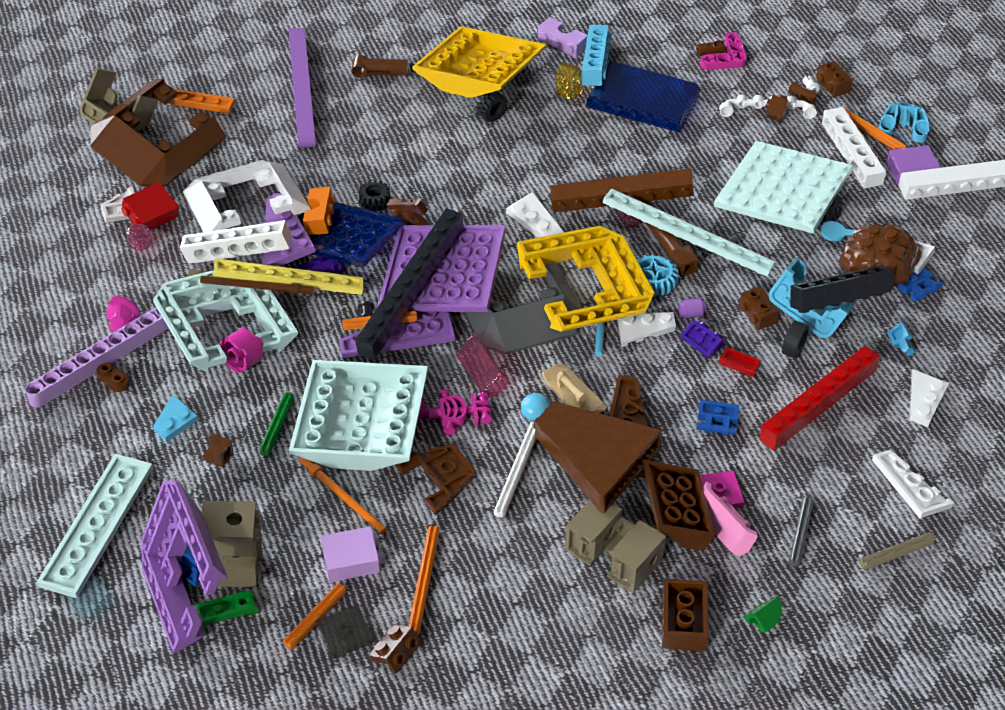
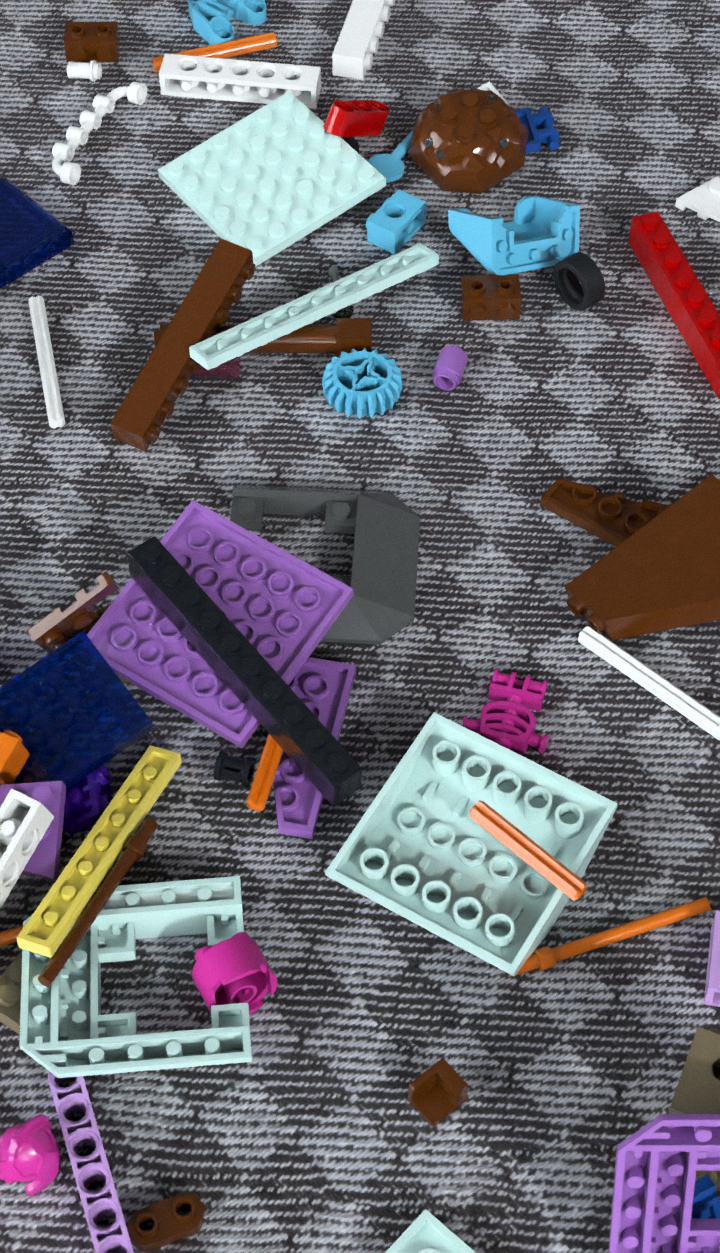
camera: 65 degrees left, 5 degrees up
(174, 419) = (323, 1144): medium azure wing -> none
(276, 424) = (414, 983): green axle -> none
(359, 429) = (528, 850): none -> axle
(446, 468) = (635, 773): reddish brown wing -> none
(481, 366) = (433, 654): clear pink piece -> none
(533, 216) = (152, 476): white wing -> none
(534, 405) = (548, 619): medium azure hair -> none
(571, 389) = (538, 564): tan piece -> none
(586, 152) = (46, 362): none -> white axle
(599, 339) = (421, 484): medium azure bar -> none
(613, 263) = (316, 412): yellow slope -> none
(645, 325) = (449, 436): white wing -> none
(702, 339) = (516, 379): dark purple bracket -> none
(717, 412) = (660, 417): blue plate -> none
(739, 361) = (572, 360): red tile -> none
(777, 107) = (114, 117): reddish brown brick -> none
(787, 247) = (396, 221): none -> medium azure brick
(802, 93) = (95, 84): reddish brown bar -> none
(840, 289) = (534, 192): black brick -> none
(852, 200) = (356, 118): none -> red beam
(900, 338) = (616, 184): dark azure plate -> none
(911, 160) = (312, 39): medium lavender brick -> none

